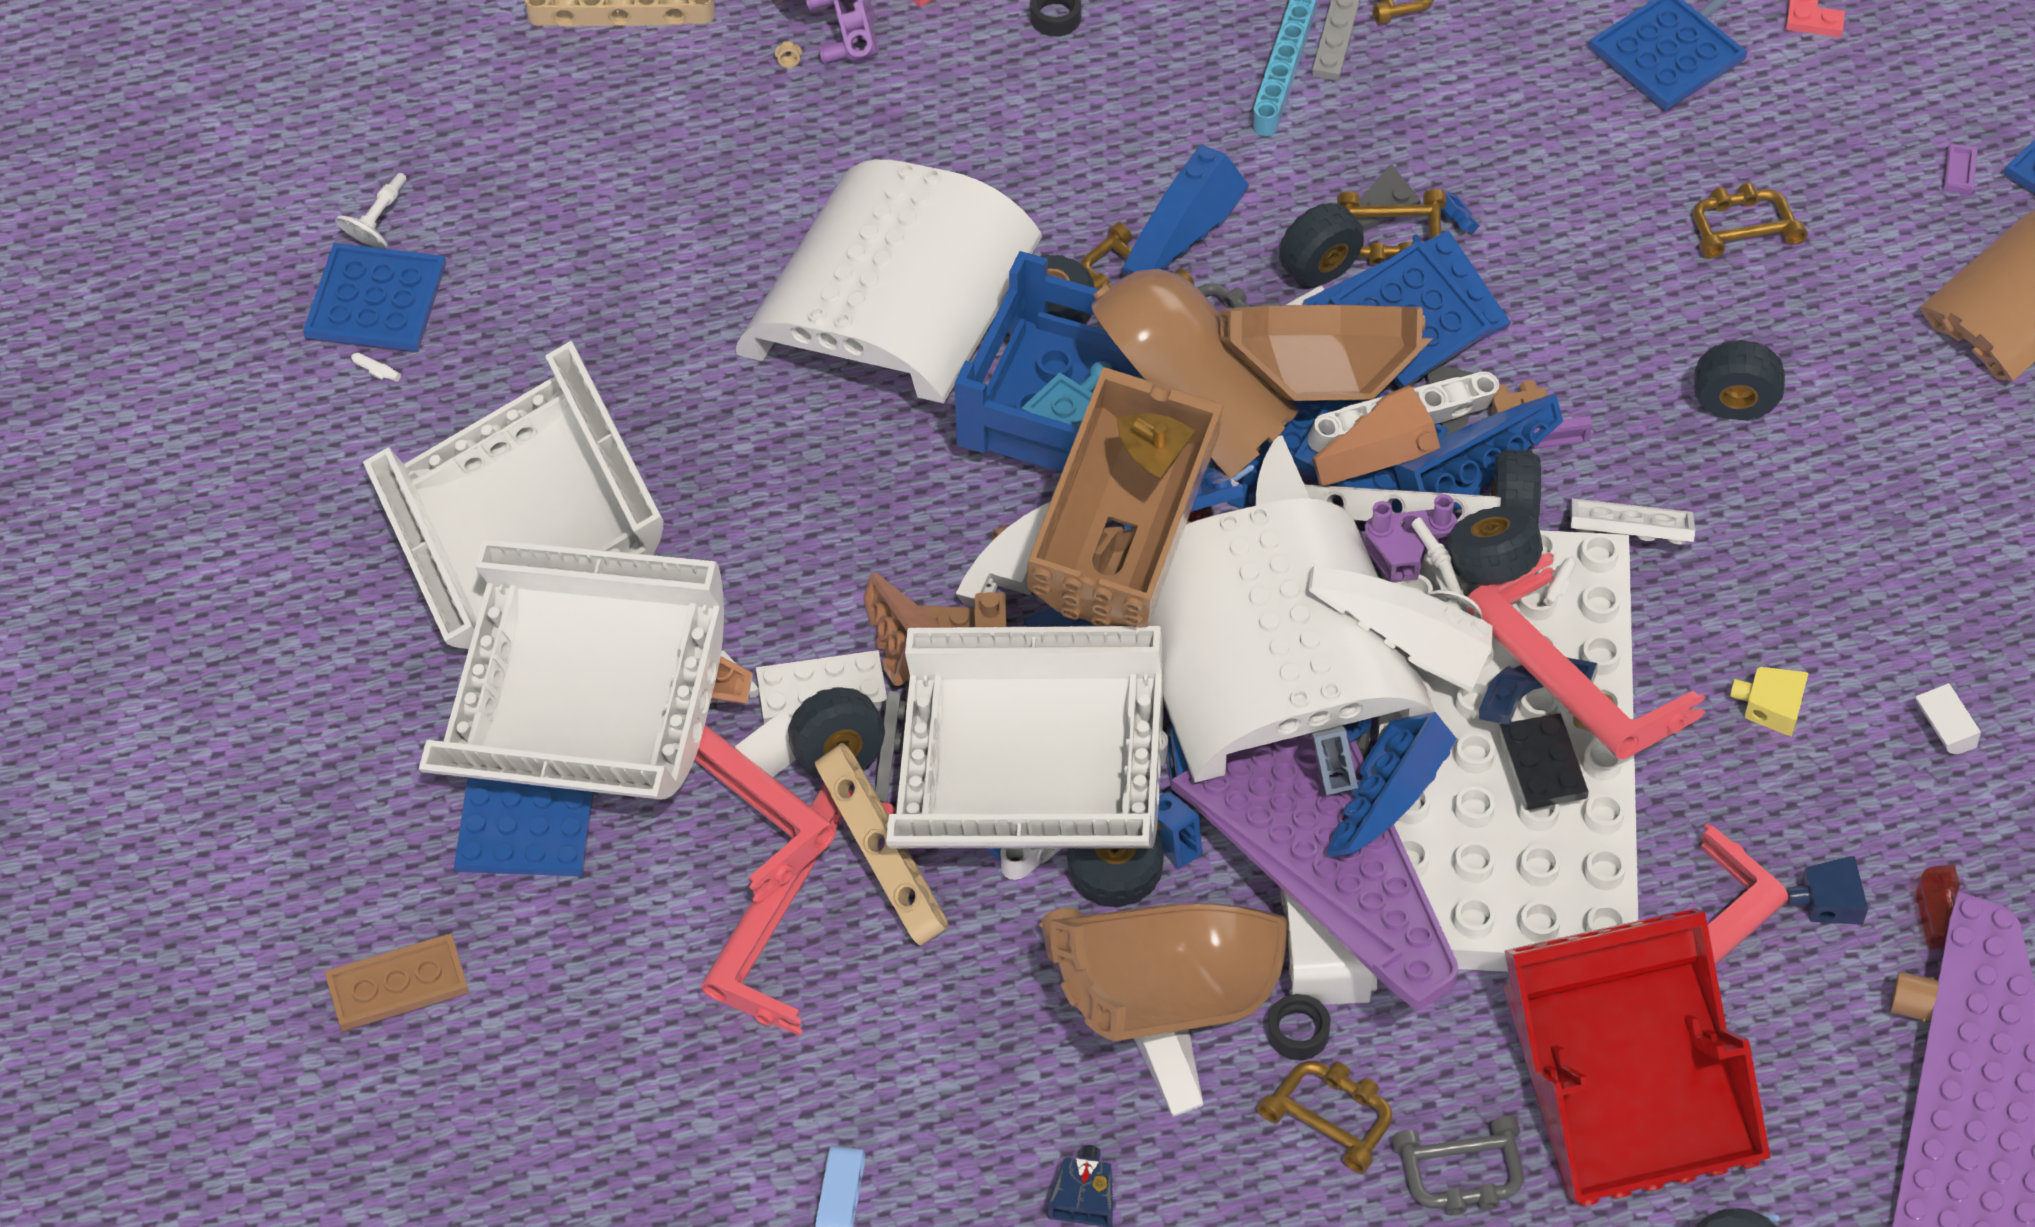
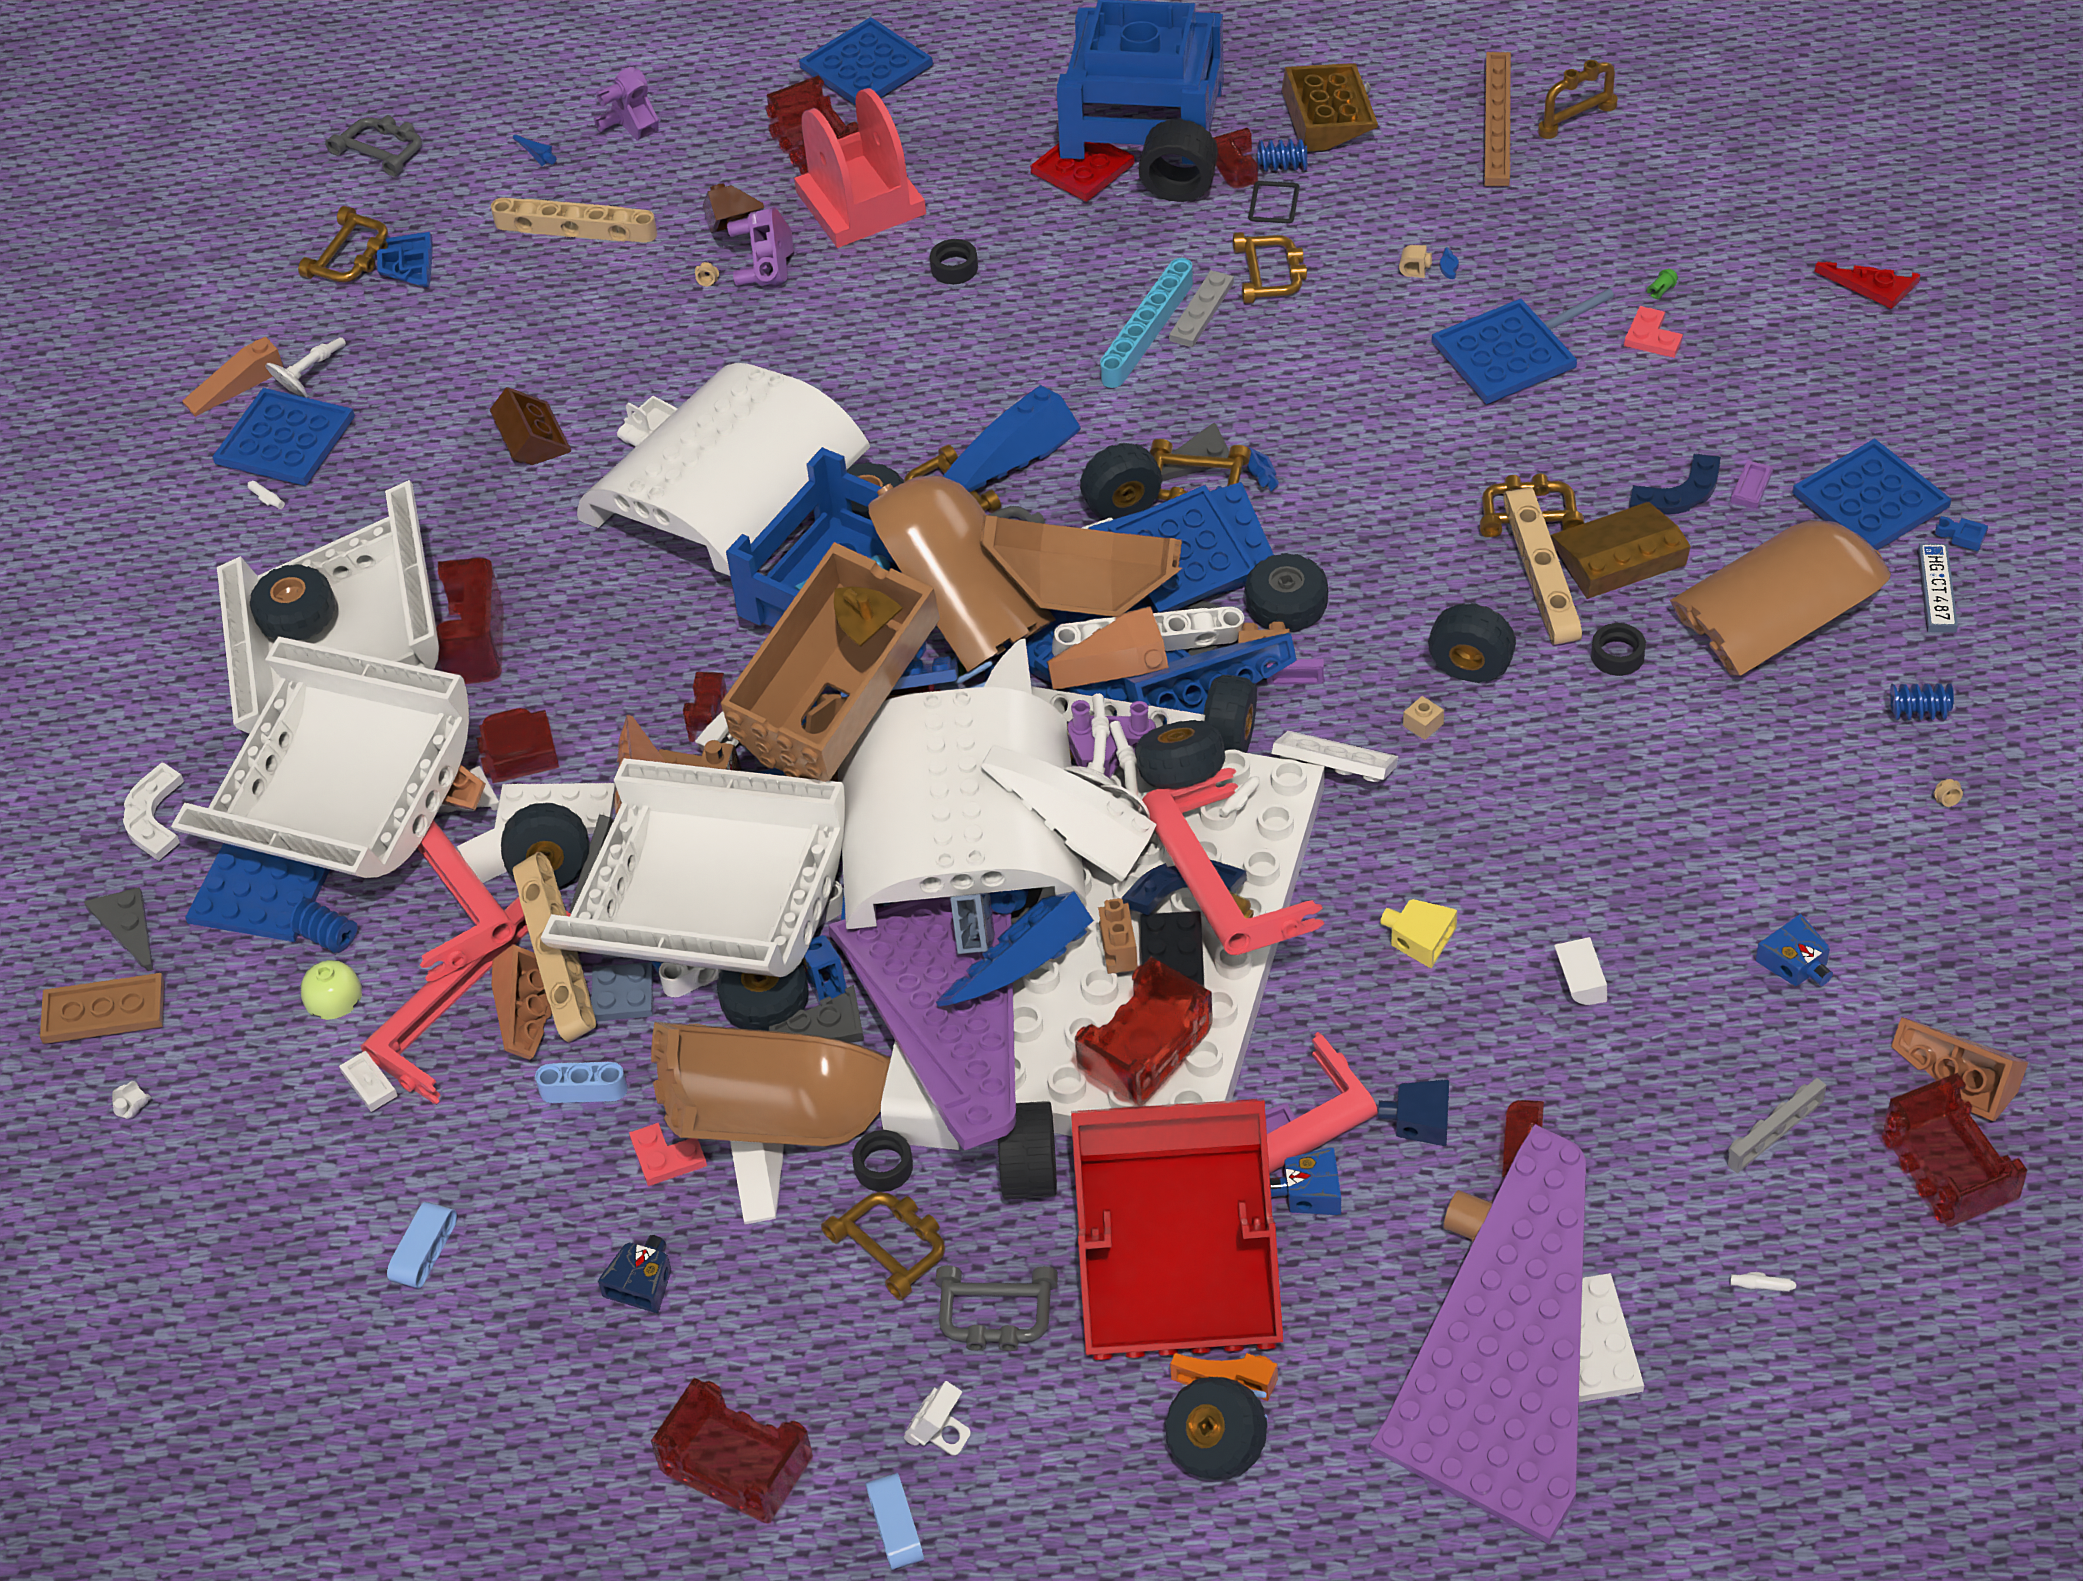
camera: 15 degrees right, 5 degrees down
(294, 230) = (235, 376): none -> nougat wedge
(361, 755) = (140, 811): none -> white plate
(385, 876) = (126, 921): none -> dark grey wing
(397, 81) = (349, 219): none -> pearl gold bar
(444, 71) = (407, 258): none -> blue slope
(462, 493) = (292, 602): none -> black wheel
(462, 1082) = (128, 1100): none -> white arm
(613, 857) = (322, 925): none -> blue piece
(644, 925) = (330, 989): none -> yellowish green cylinder
(649, 255) = (528, 427): none -> reddish brown slope
(665, 461) = (475, 642): none -> clear red windscreen
(720, 1021) = (368, 1081): none -> white plate
(761, 621) = (516, 744): none -> clear red brick
(781, 234) = (644, 420): none -> white piece
(858, 906) = (519, 1000): none -> nougat wedge
(950, 545) = (709, 692): none -> clear red piece
(961, 881) = (622, 991): none -> sand blue plate
(965, 978) = (581, 1082): none -> light blue beam
(1064, 1062) = (663, 1161): none -> coral plate
(1193, 881) = (831, 1019): none -> dark grey wing
(1404, 529) = (1100, 730): none -> white dish
(1469, 1009) = (1029, 1154): none -> black tyre
(1487, 754) = (1117, 936): none -> medium nougat hips
(1527, 345) = (1286, 591): none -> black wheel
(1550, 852) = (1147, 1034): none -> clear red windscreen
(1706, 466) = (1423, 717): none -> tan plate
(1747, 1193) = (1252, 1371): none -> orange slope
(1749, 985) = (1310, 1183): none -> blue torso
(1780, 285) = (1542, 566): none -> tan beam
(1853, 255) = (1621, 549): none -> pearl gold slope
(1878, 383) = (1615, 664): none -> black tyre
(1895, 192) = (1681, 498): none -> dark blue plate

